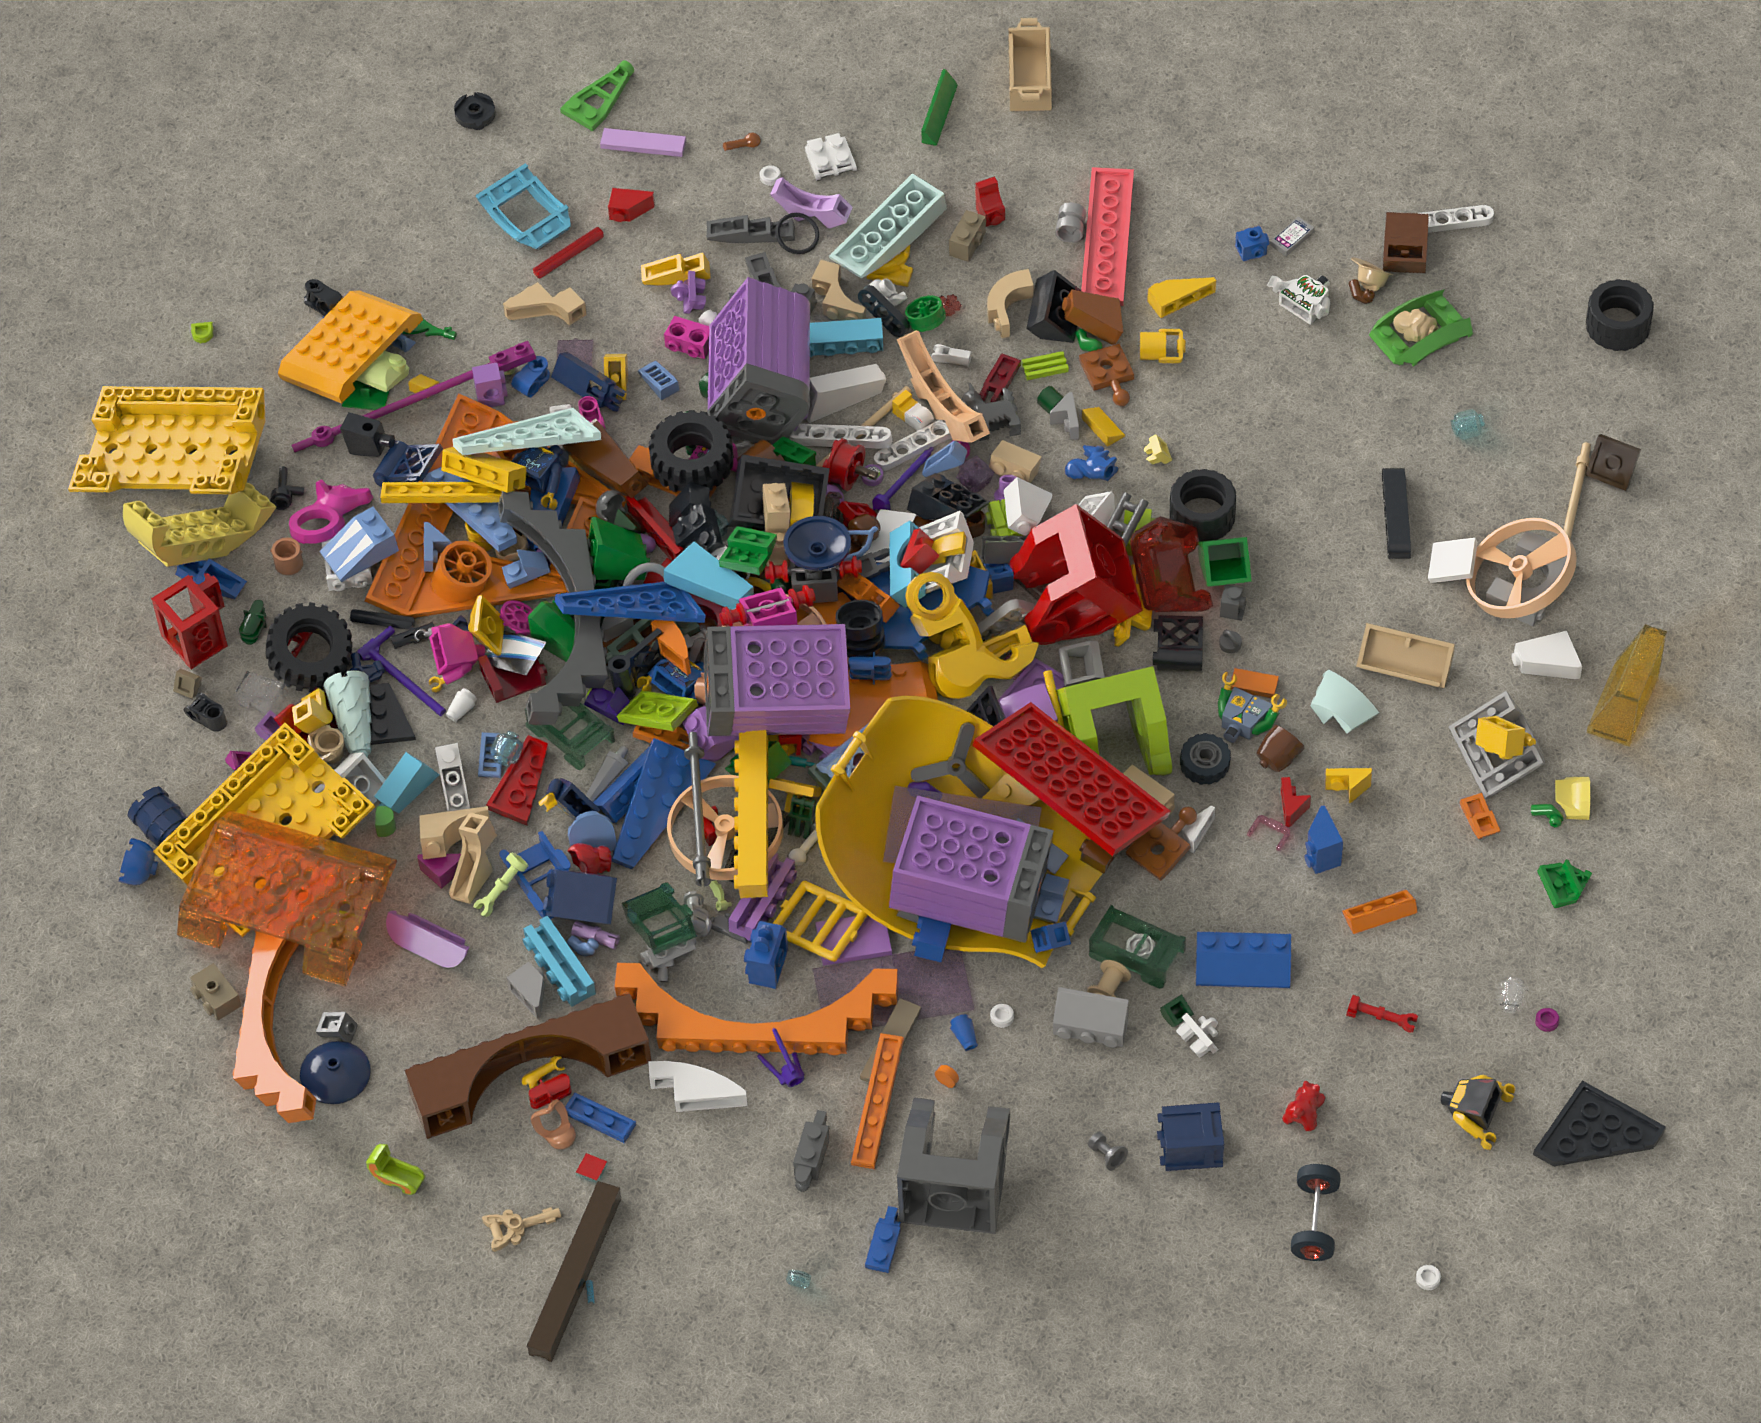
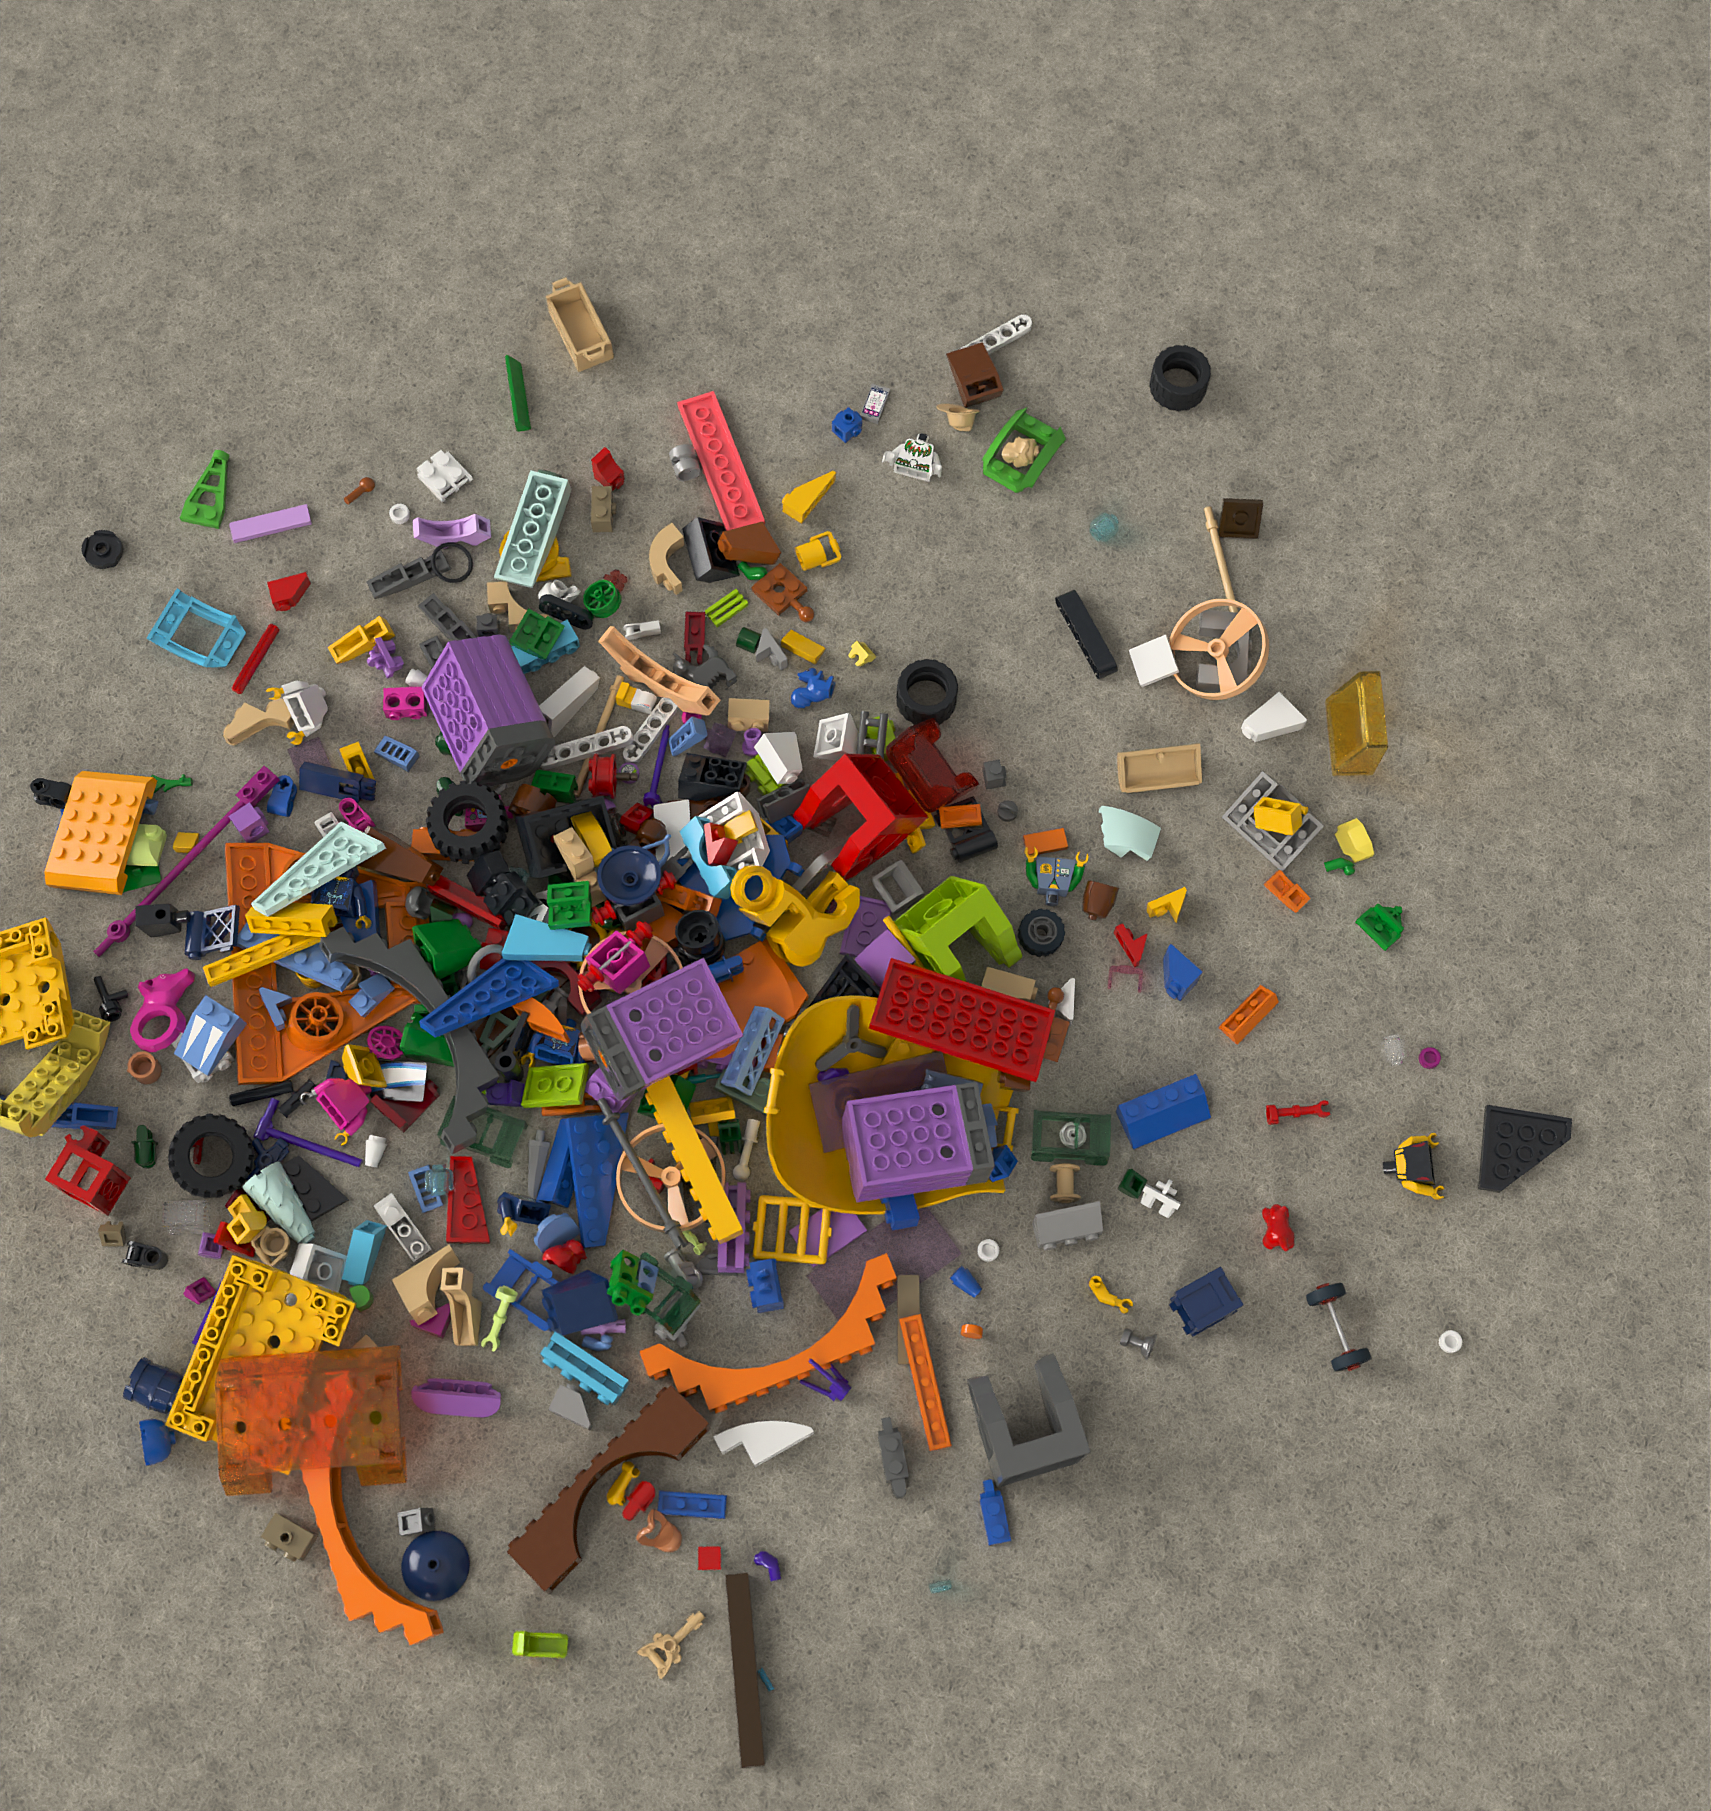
camera: 30 degrees left, 15 degrees up
(592, 304) = (305, 705): none -> white torso
(633, 894) = (630, 1283): none -> green hips
(647, 1194) = (770, 1562): none -> dark purple arm
(843, 318) = (536, 634): none -> green slope
(1095, 1099) = (1102, 1294): none -> yellow arm
(1179, 627) = (960, 816): none -> orange tile
(1225, 561) = (972, 739): green slope -> none
(1362, 296) = (957, 438): reddish brown arm -> none

